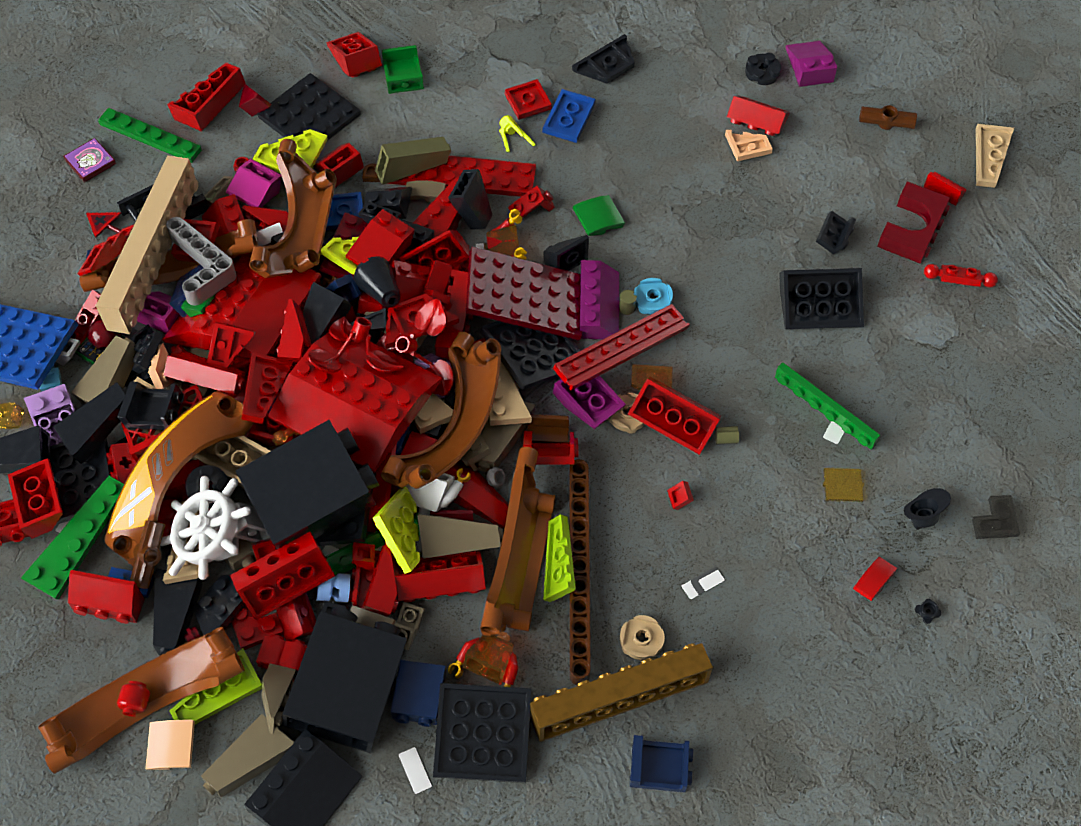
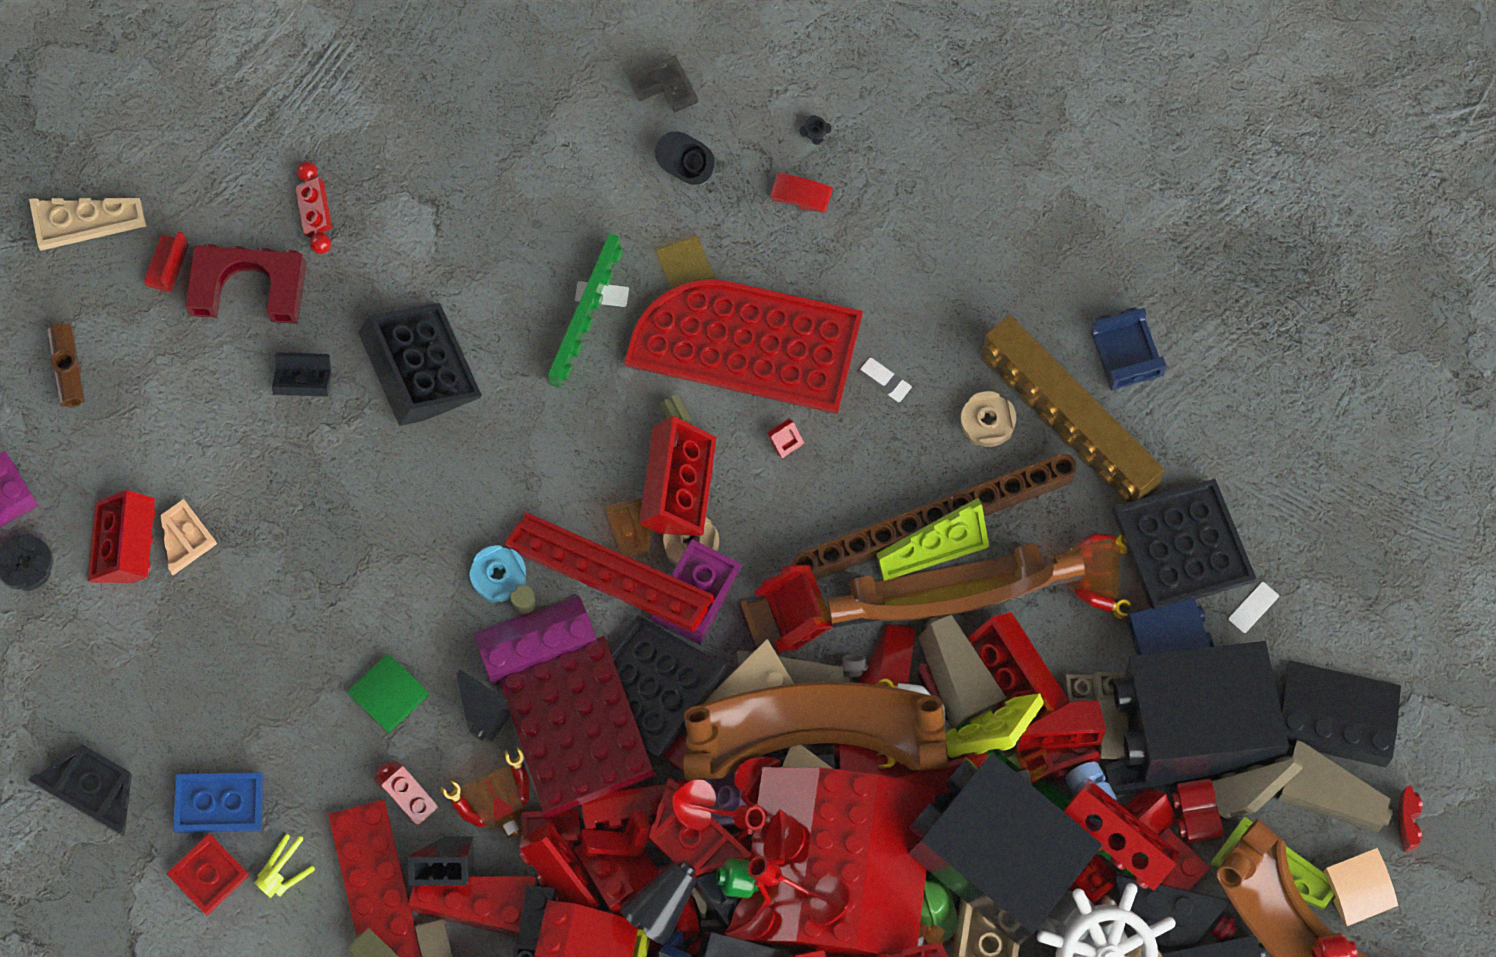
camera: 110 degrees left, 10 degrees up
(205, 808) = (1408, 810): none -> red slope
(377, 331) = (735, 879): none -> green head
(763, 502) = (749, 342): none -> red plate

